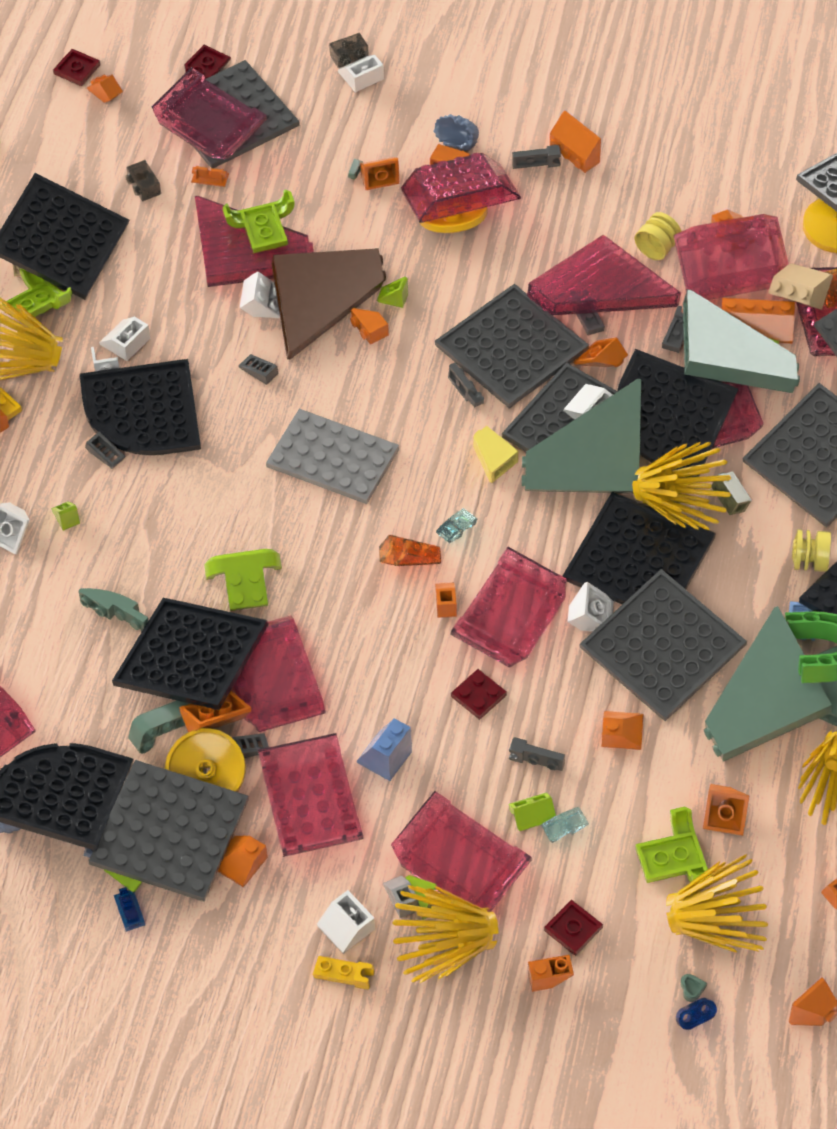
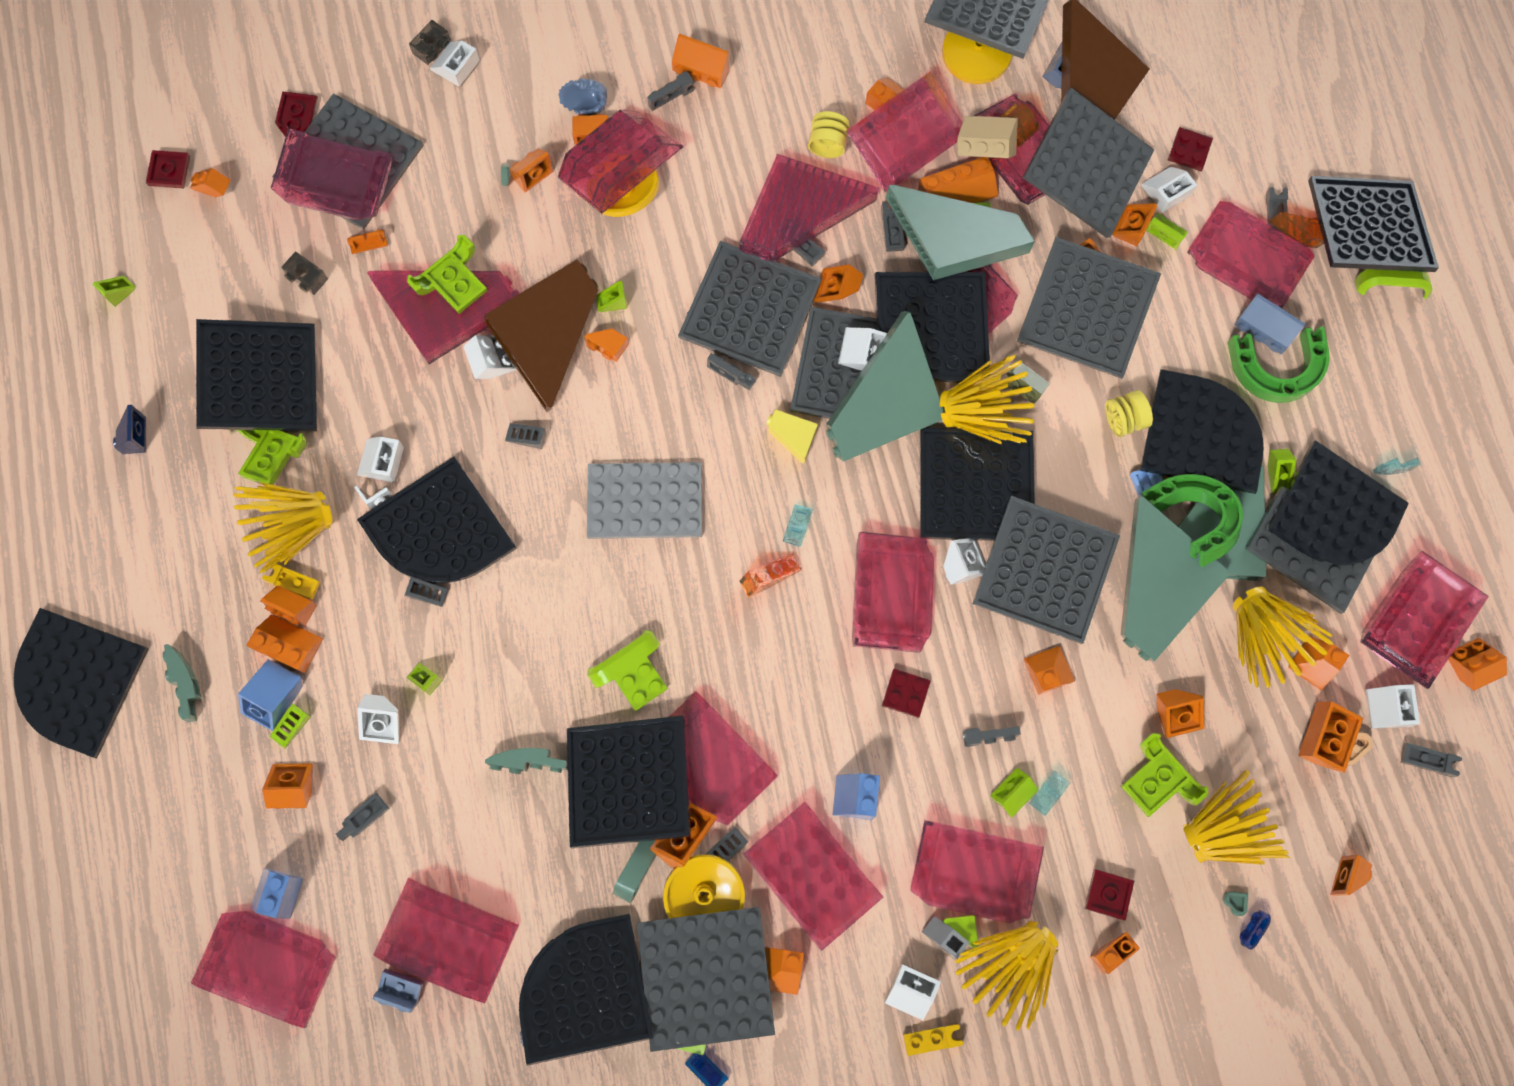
camera: 30 degrees left, 20 degrees up
(446, 600) = (828, 608): orange slope -> none

